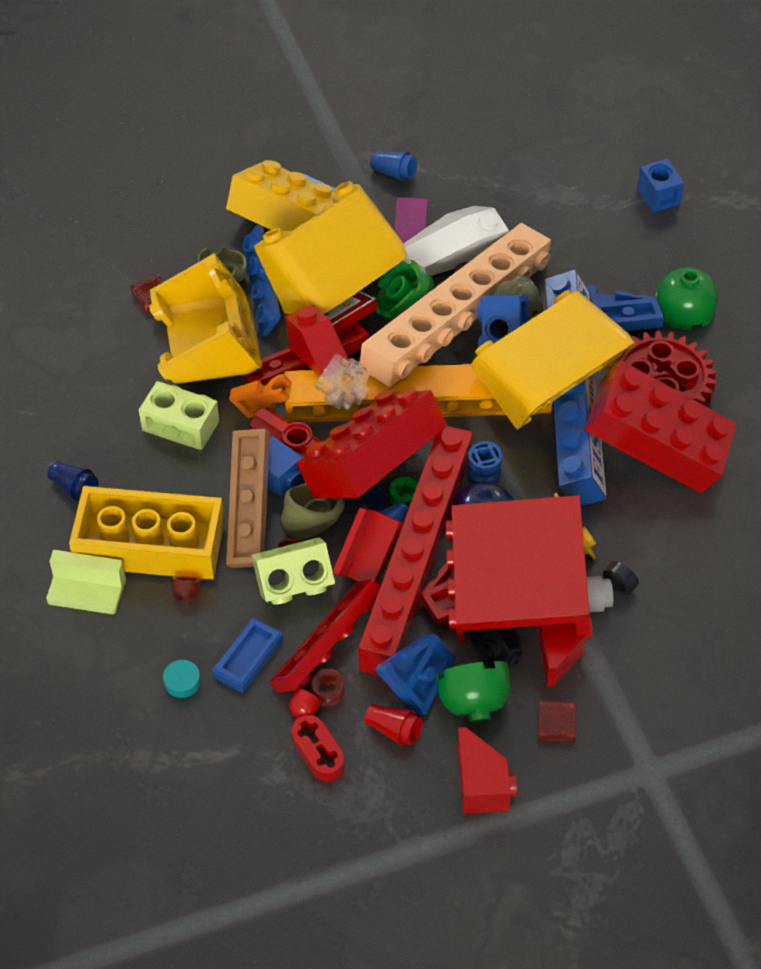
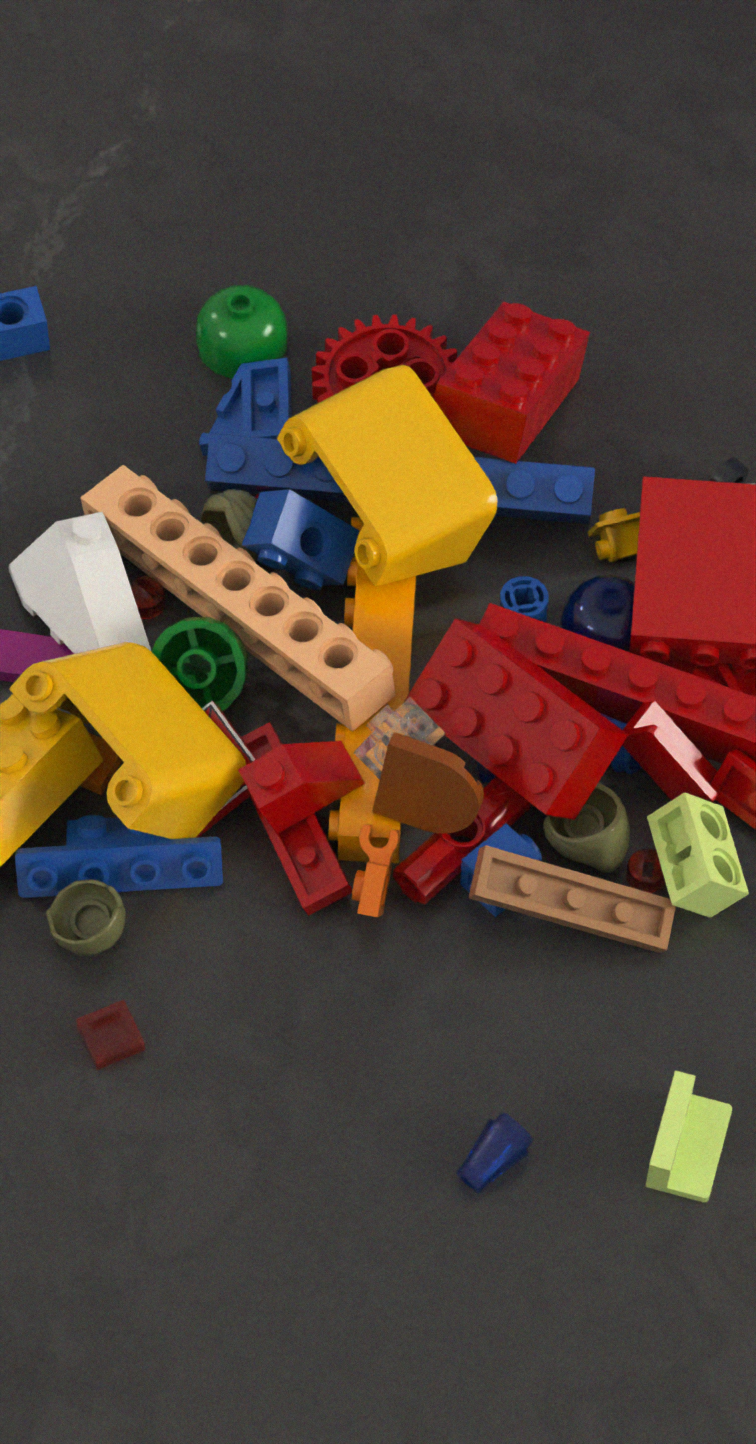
camera: 85 degrees left, 5 degrees up
(150, 531) = (619, 1040): yellow brick -> none
(179, 415) = (394, 998): yellowish green brick -> none
(186, 586) = (704, 1003): clear red hinge -> none
(206, 324) = (228, 945): yellow windscreen -> none
(306, 389) = (426, 787): none -> dark orange tile

